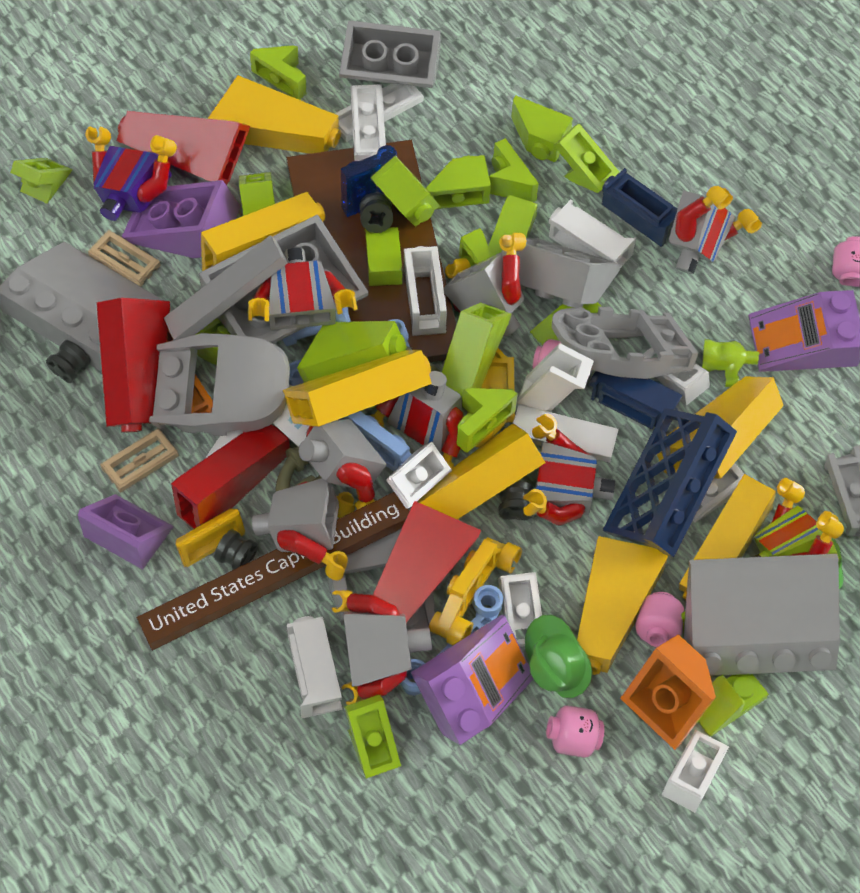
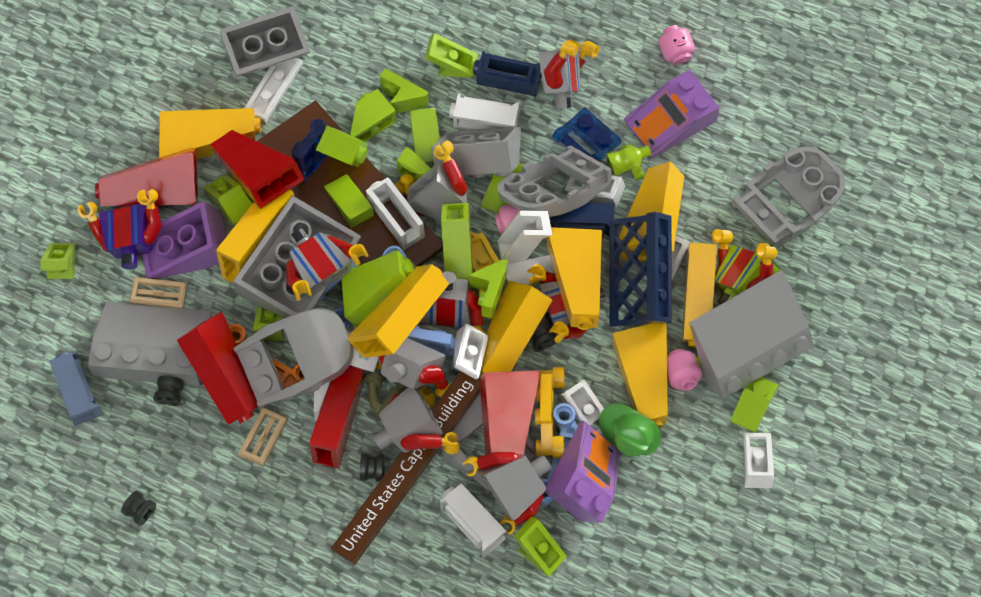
camera: 25 degrees left, 5 degrees up
(123, 529) = (285, 491): medium lavender slope -> none
(205, 538) = (347, 466): yellow tile -> none
(226, 289) = (263, 285): light grey tile -> none
(279, 68) = (180, 90): lime slope -> none
(299, 171) = (257, 168): none -> red slope
(367, 120) = (277, 103): white tile -> none
(376, 204) = (327, 164): pearl dark grey wheel -> none
(539, 127) = (402, 47): lime slope -> none
(575, 731) = (669, 474): bright pink head -> none
(596, 445) = (577, 269): none -> yellow slope
(671, 690) = (720, 415): orange slope -> none
(701, 308) = (591, 132): none -> clear blue plate

